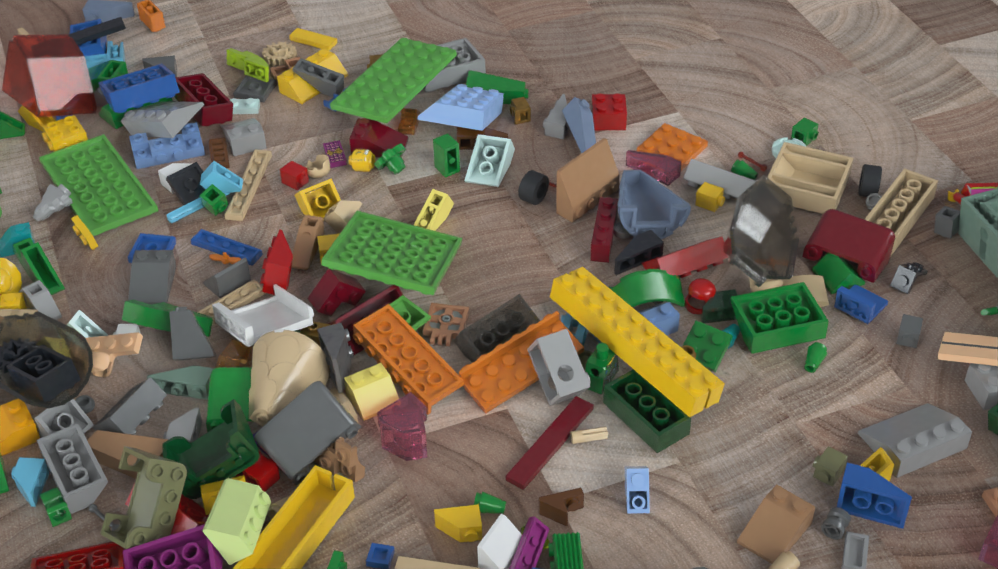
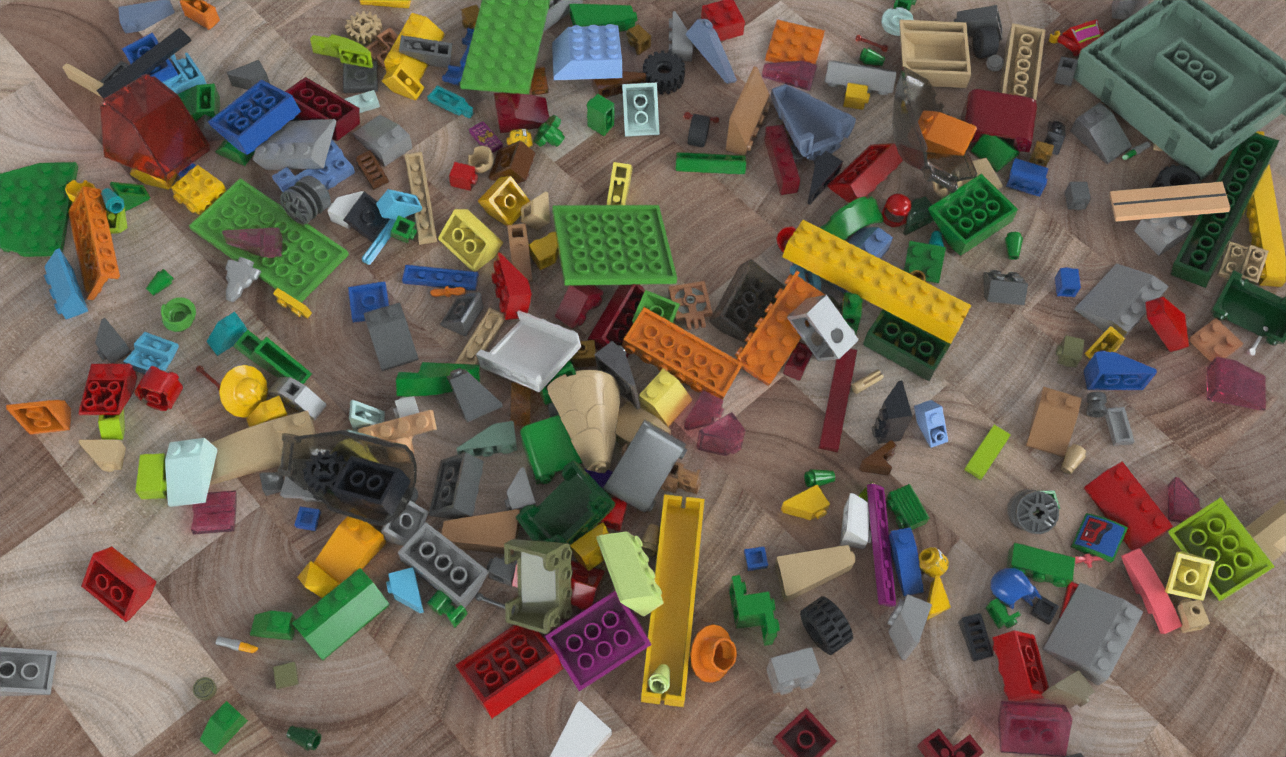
camera: 25 degrees left, 20 degrees up
(84, 178) = (262, 241): none -> clear pink slope
(121, 488) = (500, 571): none -> dark grey brick
(142, 156) = (305, 199): none -> dark grey wheel
(267, 218) = (469, 239): none -> light yellow slope
(286, 97) = (402, 82): none -> yellow slope
(319, 120) = (450, 102): none -> teal hinge
(348, 175) = (513, 161): none -> reddish brown slope
(526, 399) = (798, 361): none -> dark red slope
(529, 139) = (665, 81): none -> black tyre
(534, 219) = (710, 163): none -> green slope
(588, 460) = (893, 416): none -> black slope
(687, 534) = (987, 452): none -> lime tile
(775, 238) = (945, 133): none -> orange slope
(783, 391) = (1004, 288): none -> dark grey slope
(858, 403) = (1067, 282): none -> blue brick
(880, 157) = (981, 18): none -> dark grey slope
(885, 285) = (1041, 153): none -> pearl gold brick
(955, 464) = (1168, 323): none -> red slope
(964, 284) = (1101, 133): none -> flat silver slope

